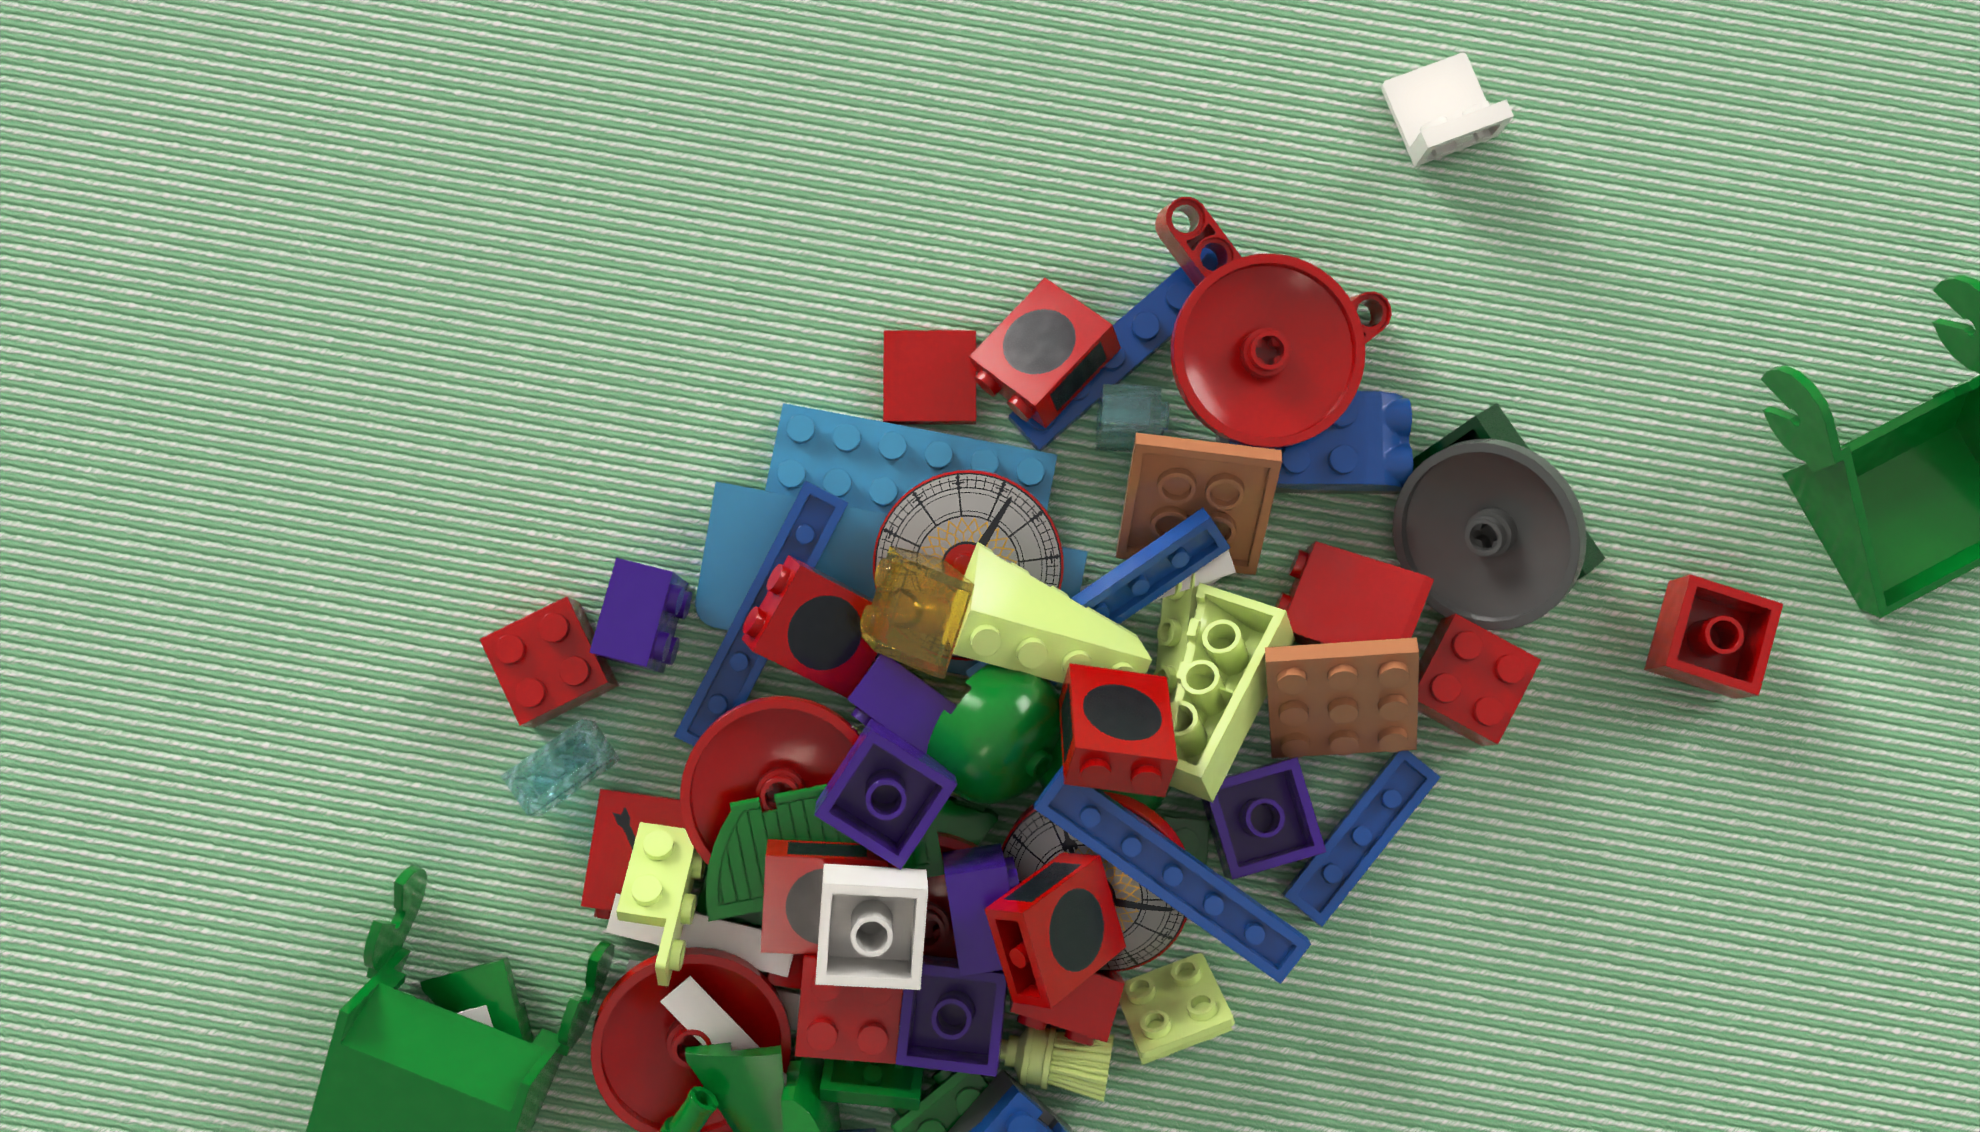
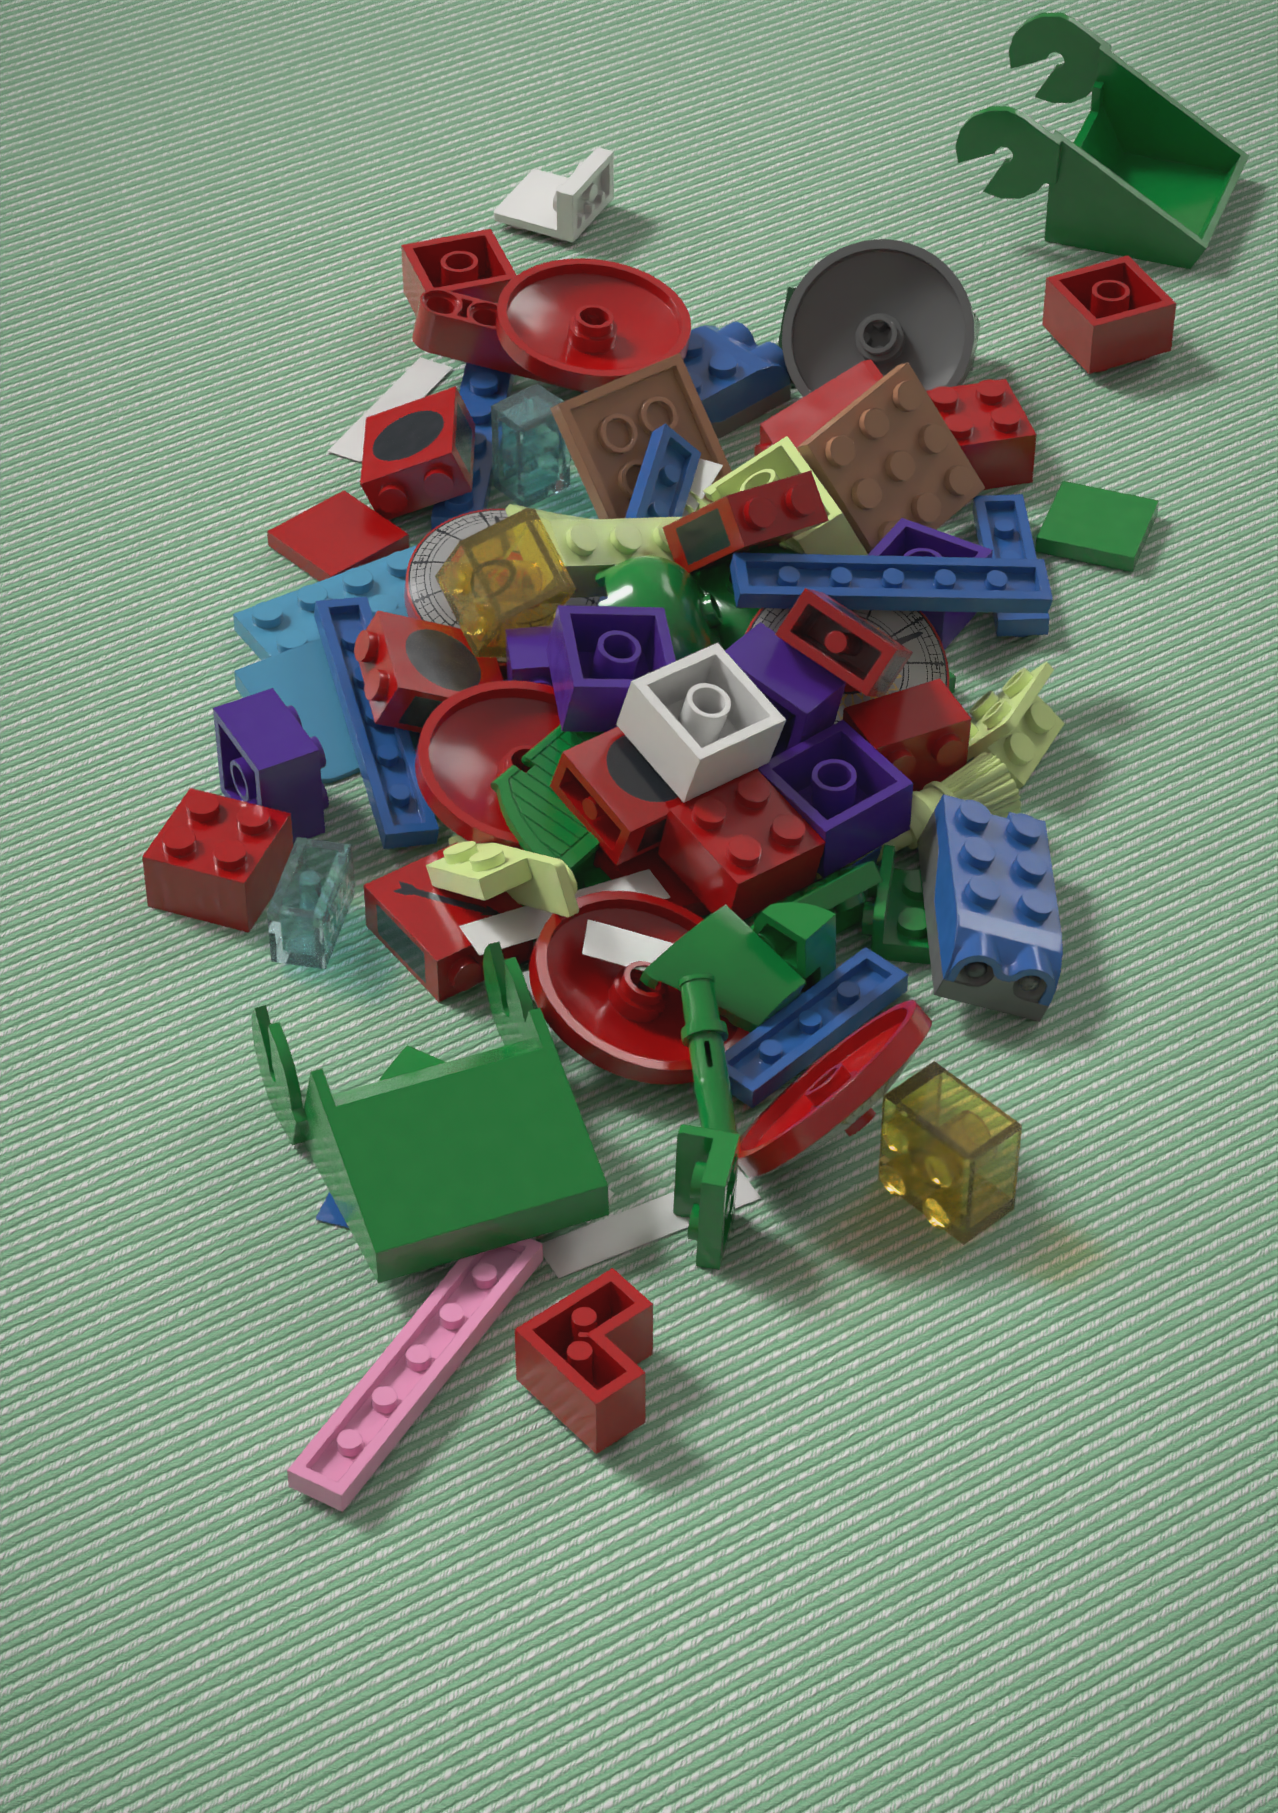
camera: 40 degrees left, 40 degrees down
(1096, 252) = (409, 387): none -> white sticker
(1260, 168) = (457, 263): none -> red brick
(1472, 845) = (1097, 526): none -> green tile

